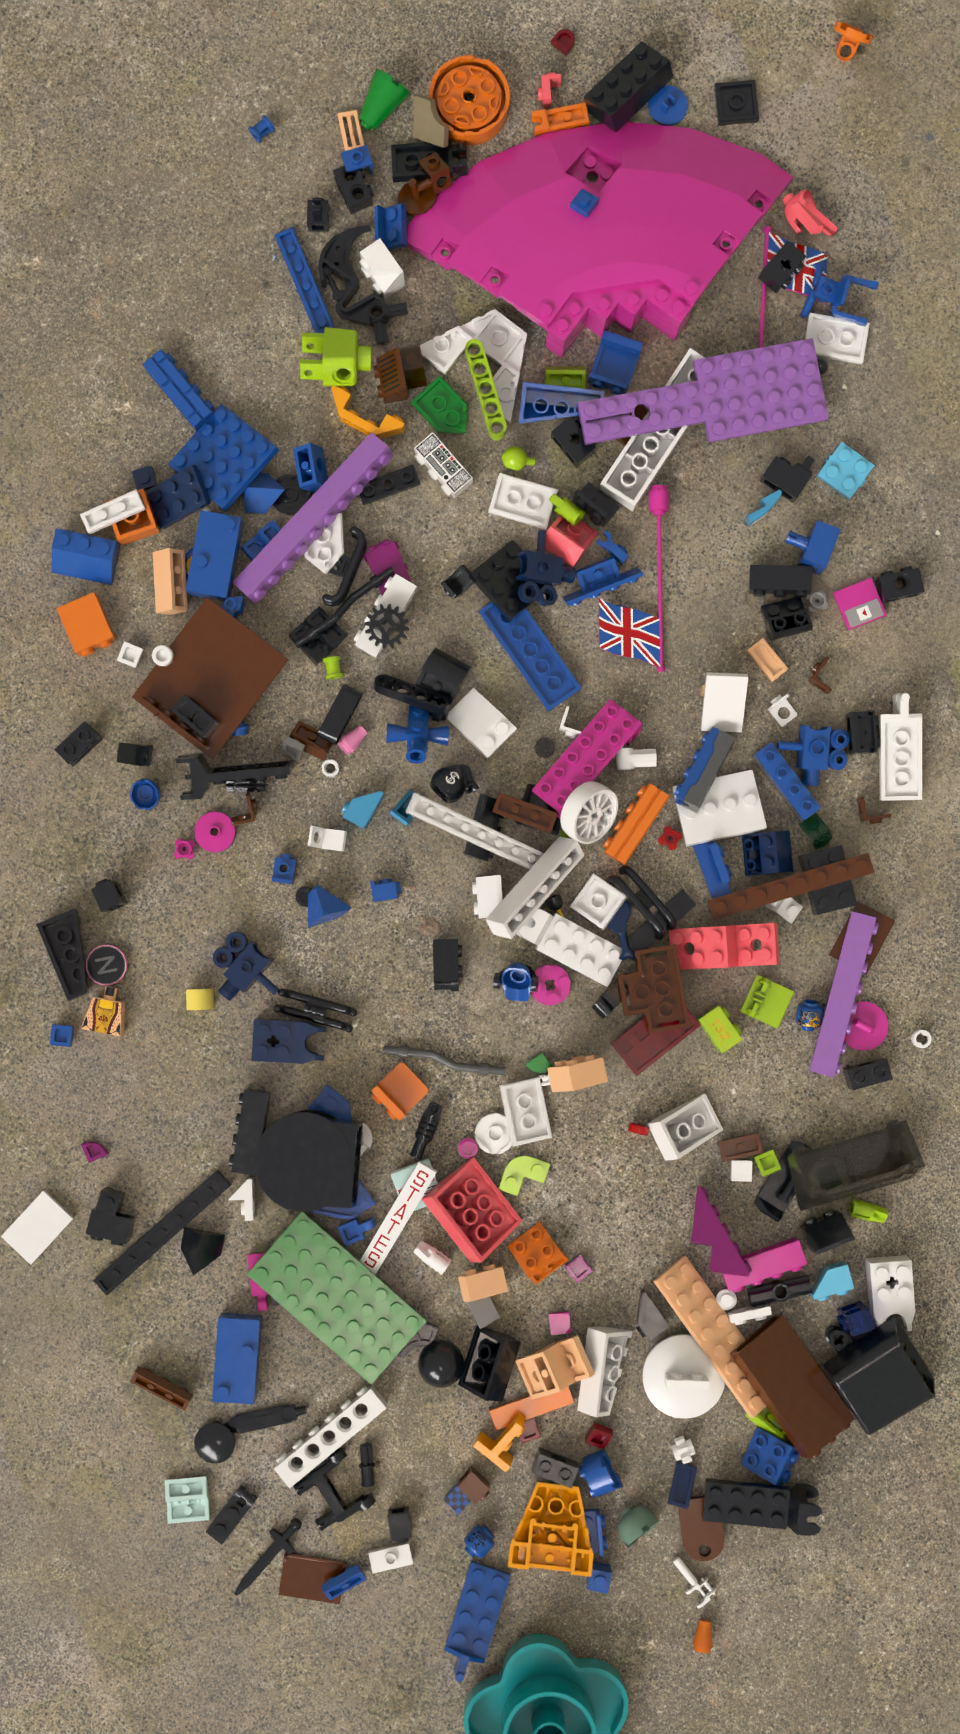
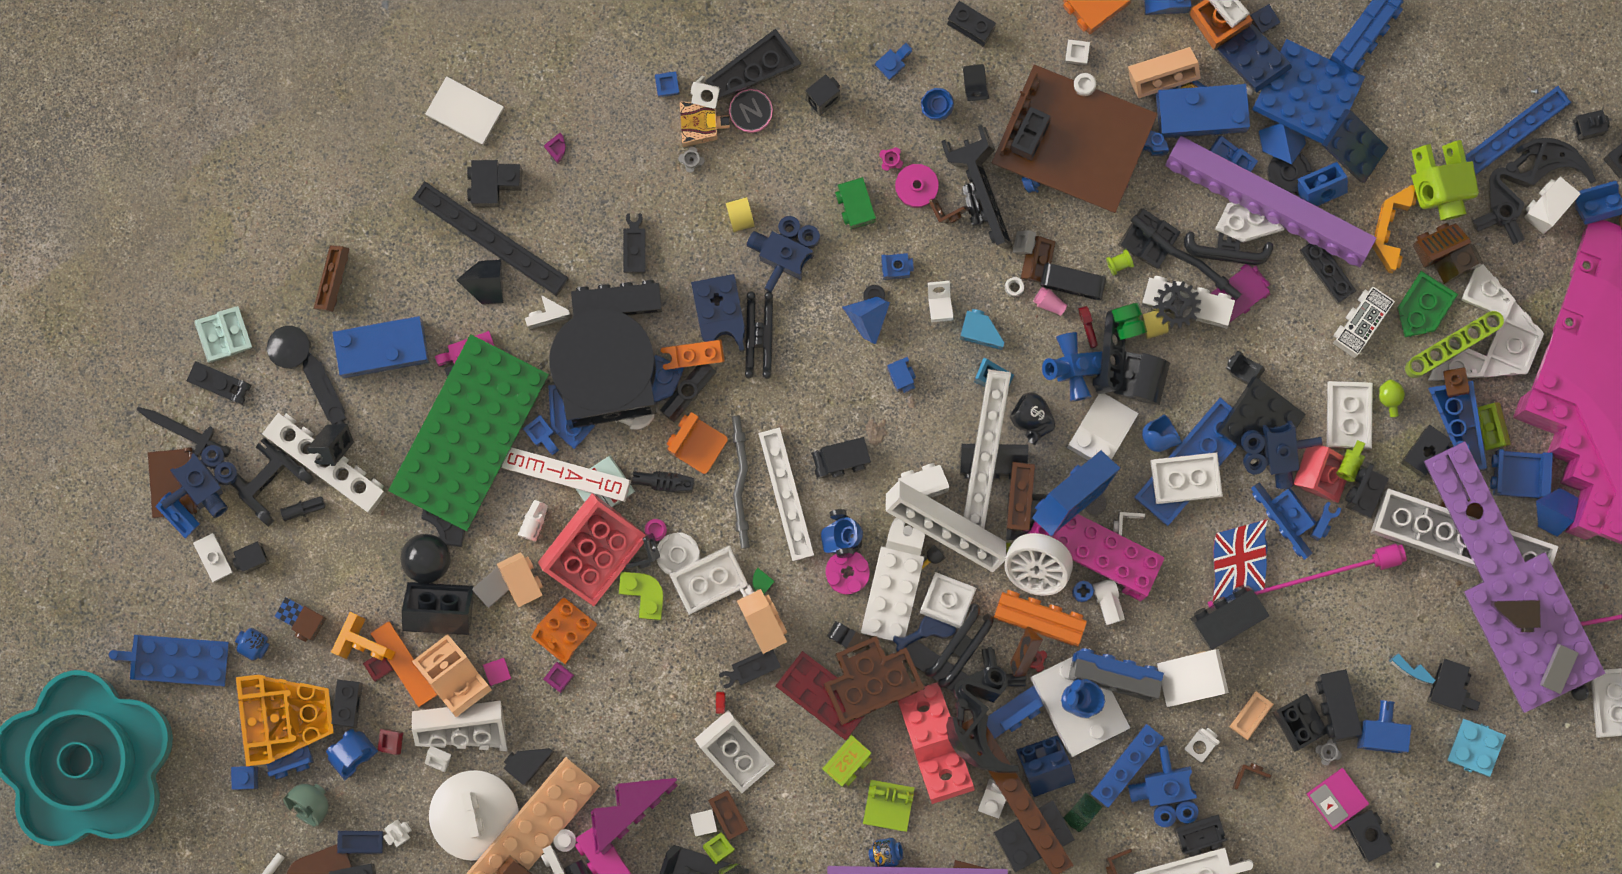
camera: 80 degrees right, 5 degrees down
(76, 1010) = (697, 89): none -> white bracket
(96, 825) = (891, 62): none -> blue plate
(131, 1028) = (691, 153): none -> light grey plate
(204, 1102) = (634, 246): none -> black plate
(217, 891) = (855, 203): none -> green brick
(282, 428) = (1355, 146): none -> dark blue plate
(315, 1426) = (331, 443): none -> black hinge
(318, 1074) = (694, 354): none -> orange plate
(321, 1556) = (201, 484): none -> dark blue piece
(358, 1098) = (678, 402): none -> black piece
(378, 711) = (1086, 319): none -> dark red bar
(389, 673) = (1129, 321): none -> green wheel
(398, 654) = (1154, 325): none -> light yellow brick
(466, 1022) = (786, 494): none -> white plate
(495, 1165) = (652, 554): none -> black bracket
(498, 672) = (1160, 434): none -> blue hair
(520, 397) = (1456, 382): none -> reddish brown bracket
(535, 762) = (1075, 492): none -> blue brick
(544, 660) = (1186, 478): none -> white tile
(615, 1093) = (752, 668): none -> black plate
(625, 1396) = (437, 759): none -> white tile
(627, 777) = (1088, 586): none -> blue bush
(657, 341) = (1556, 511): none -> blue slope
(663, 845) = (1025, 652): none -> reddish brown slope
(678, 655) = (1229, 616): none -> black slope
(684, 891) = (965, 692): none -> black piece
(720, 804) = (1083, 699): none -> blue hair
(744, 395) = (1520, 613): none -> dark brown slope
(799, 377) = (1559, 668): none -> light grey slope

